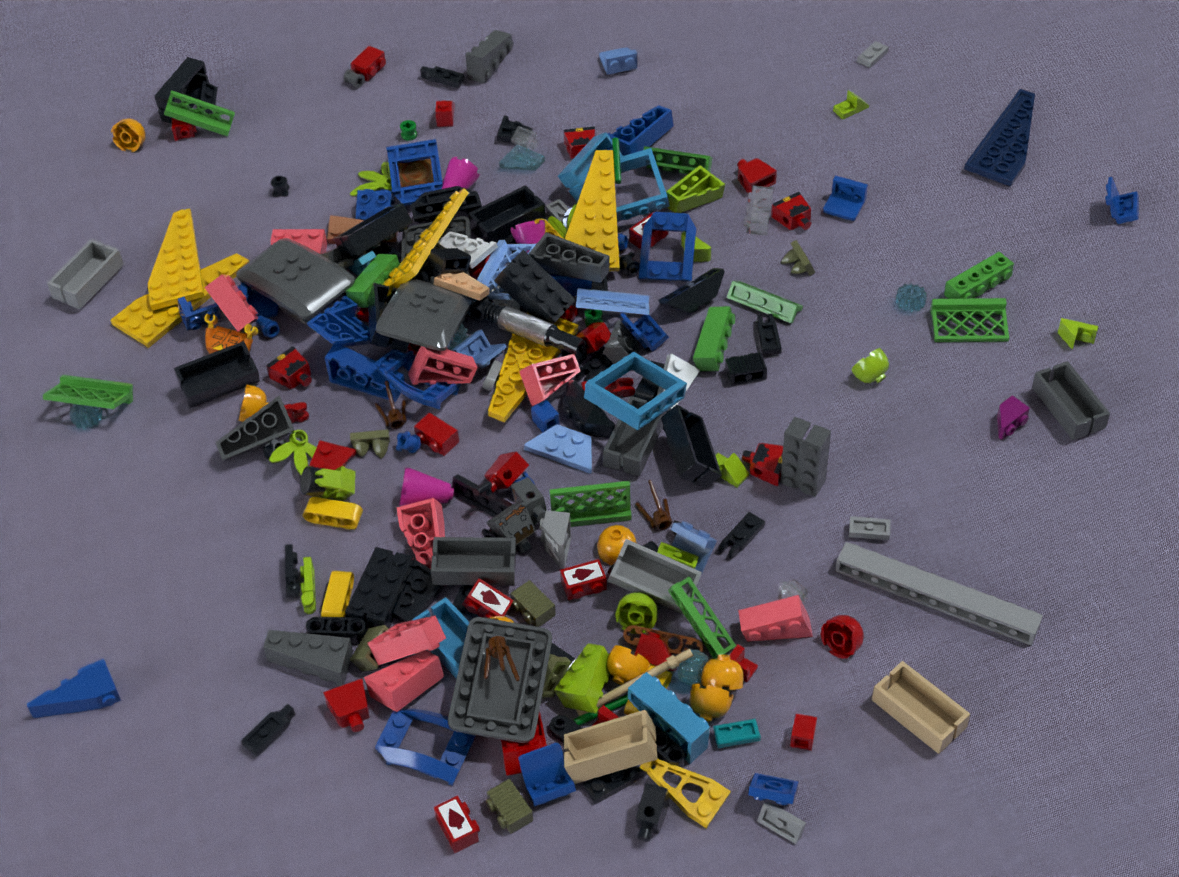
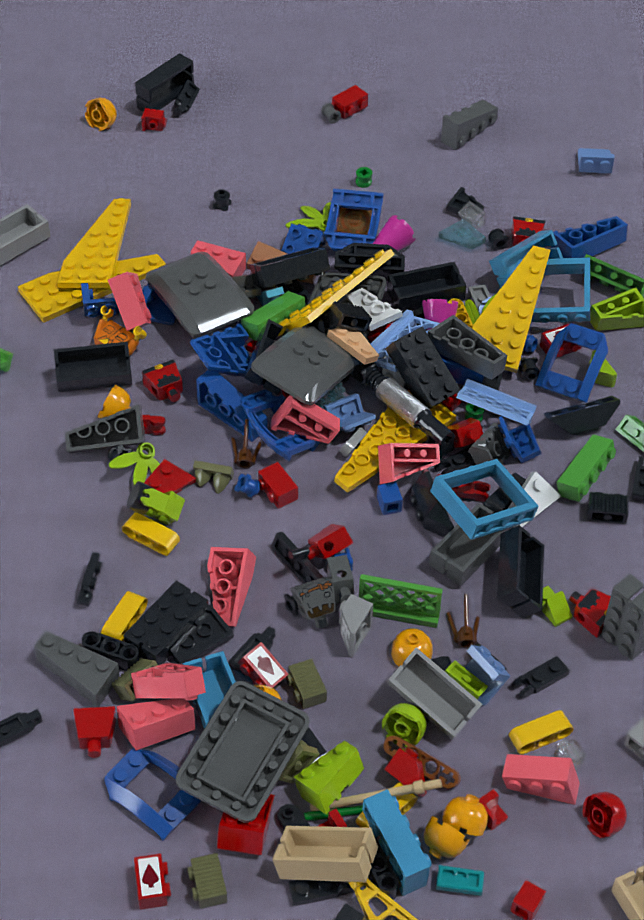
camera: 15 degrees right, 0 degrees up
(198, 116) = (170, 112): bright green fence -> none
(267, 326) = (159, 333): blue cone -> none
(308, 586) = (100, 600): lime hinge -> none
(421, 487) = (241, 533): dark pink cone -> none
(442, 76) = (416, 132): black hinge -> none
(445, 113) = (405, 169): red slope -> none
(470, 558) = (258, 620): dark grey piece -> none
(498, 649) = (249, 720): reddish brown plant -> none
(545, 774) = (253, 860): blue bracket -> none
(558, 156) = (498, 239): none -> black brick
(563, 447) = (397, 534): light blue wing -> none
(583, 579) = (365, 674): red brick -> none
(616, 156) = (551, 260): green bar -> none
(624, 665) = (373, 775): light orange cylinder -> none
(691, 669) = (437, 799): clear light blue gear -> none
(698, 621) = (460, 750): bright green fence -> none
(759, 582) = (540, 732): none -> yellow beam

